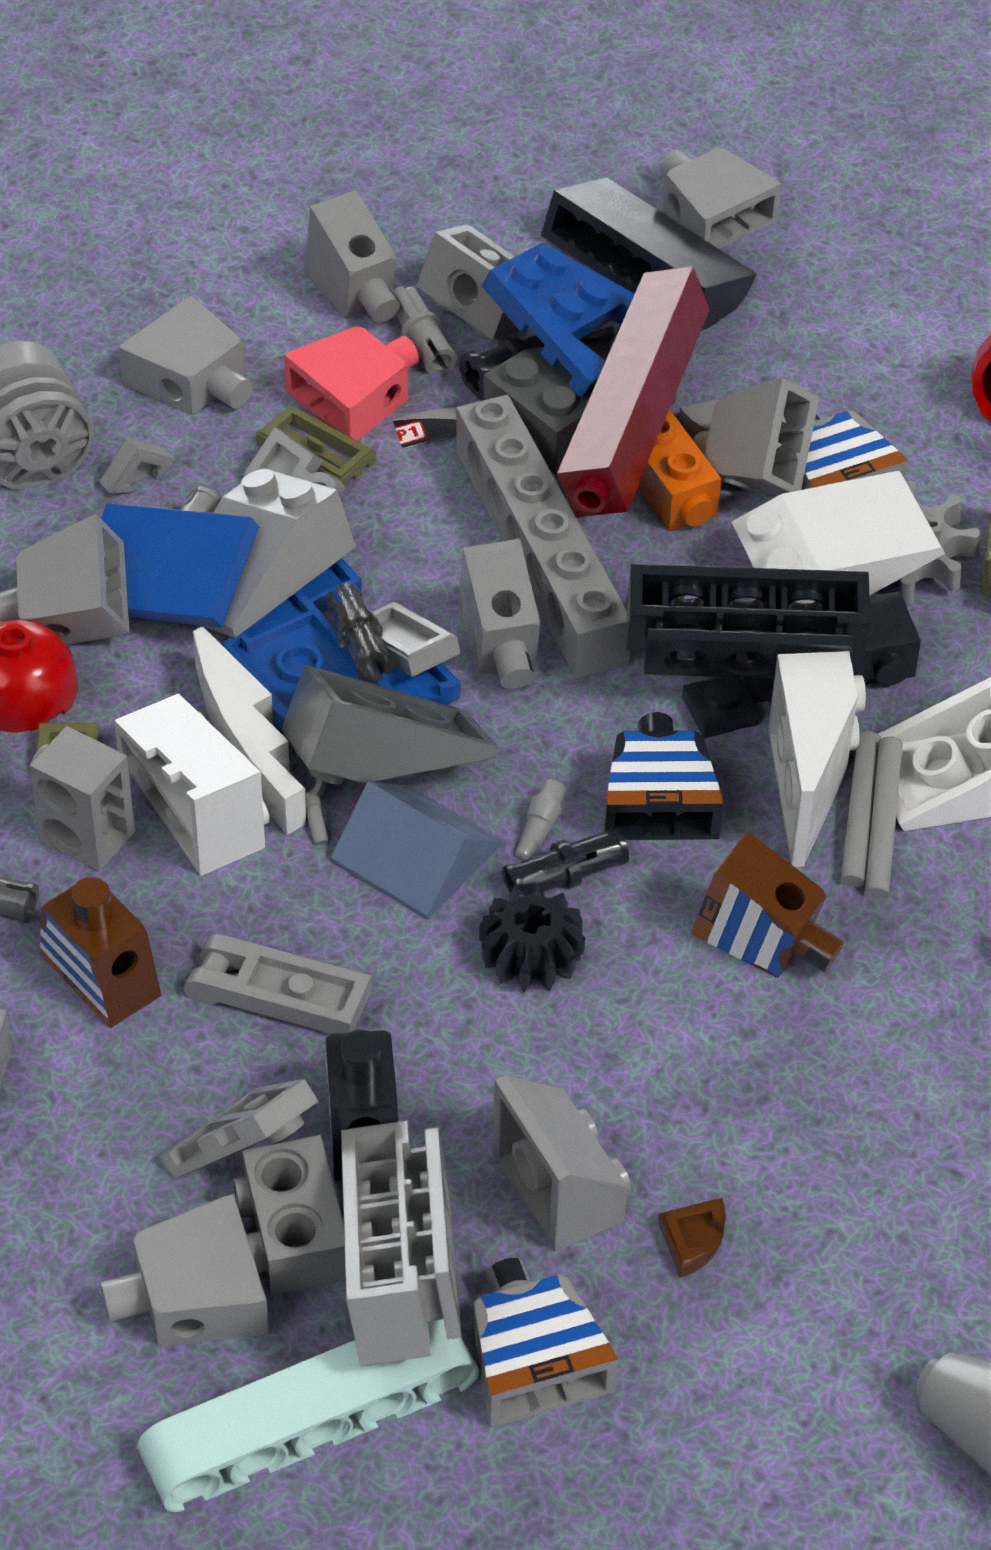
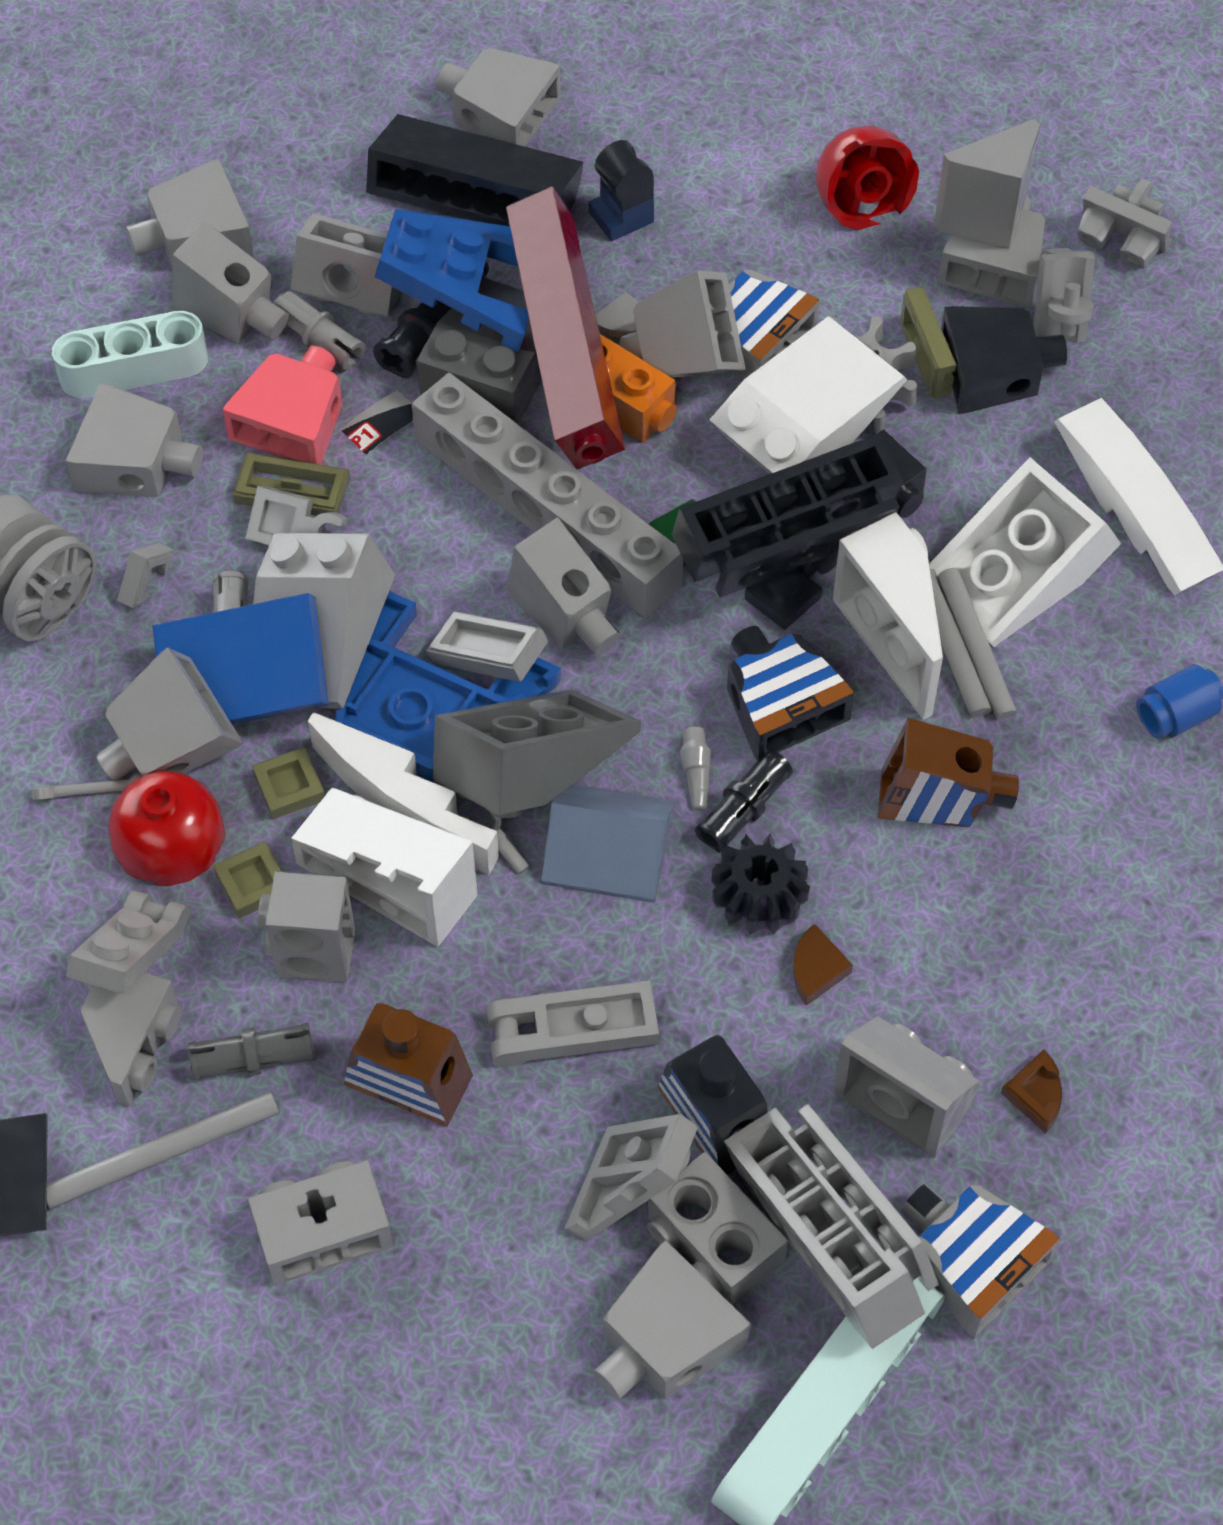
camera: 25 degrees left, 10 degrees up
(150, 681) = (288, 783): none -> olive tile
(240, 287) = (130, 353): none -> light aqua beam
(359, 632) = (452, 659): clear smoke pin -> none
(384, 186) = (183, 205): none -> light grey torso
(545, 1034) = (818, 965): none -> reddish brown tile
(781, 307) = (625, 191): none -> leg

